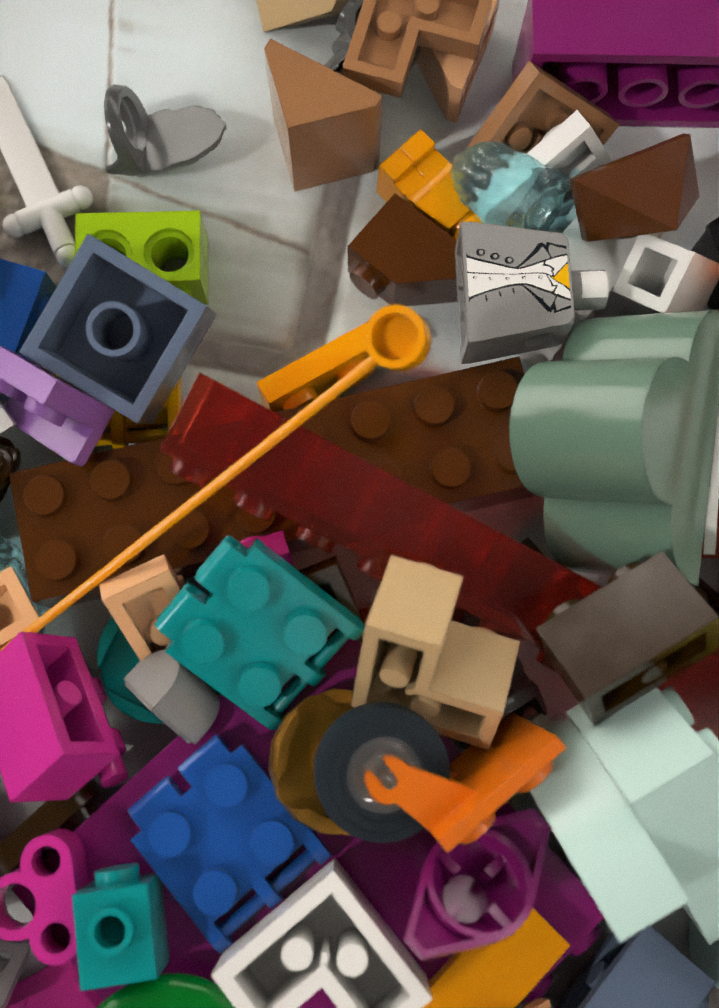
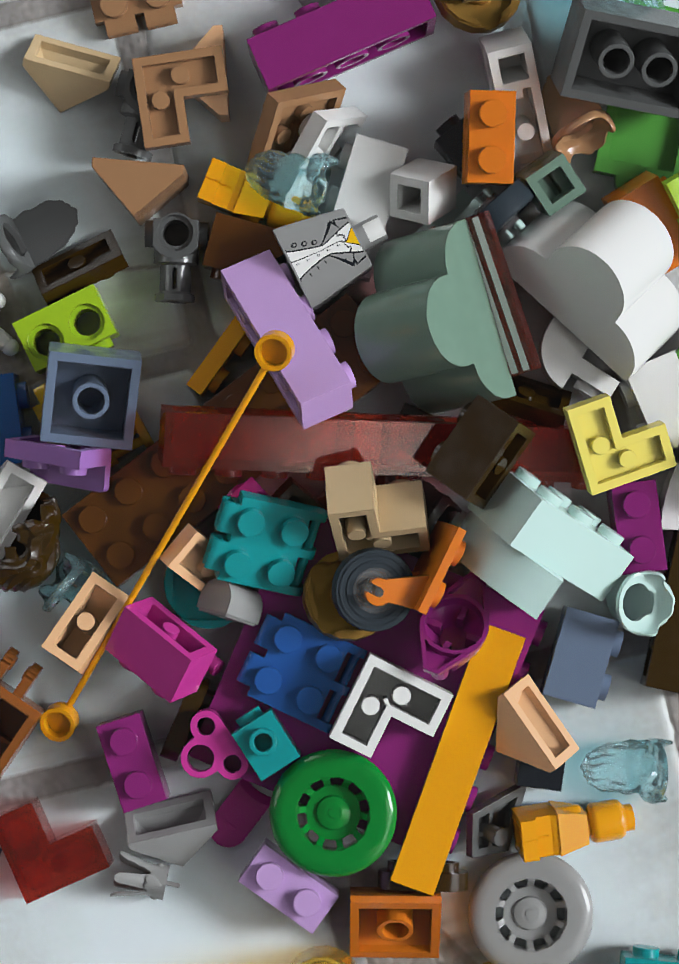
camera: 15 degrees left, 10 degrees up
(218, 197) = (79, 267): none -> dark brown plate
(318, 234) = (176, 257): none -> dark grey connector
(430, 415) = (265, 300): none -> lavender brick
(637, 192) = (379, 148): reddish brown slope -> none

